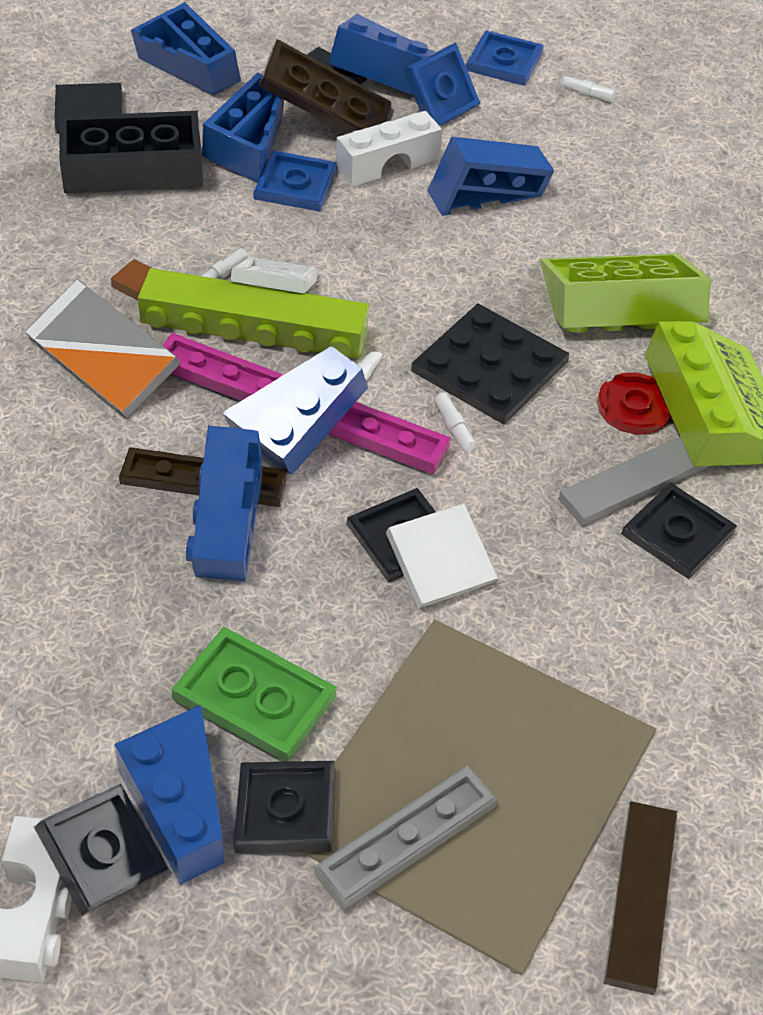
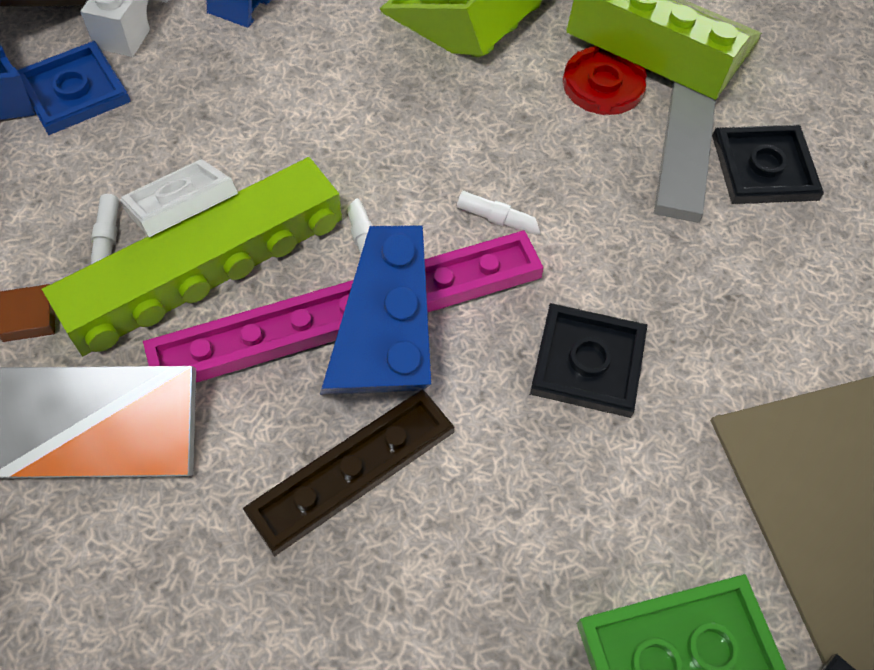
camera: 45 degrees left, 10 degrees up
(226, 504) = (439, 487): blue wedge -> none
(441, 555) = (656, 352): white tile -> none
(490, 363) = (457, 134): black plate -> none

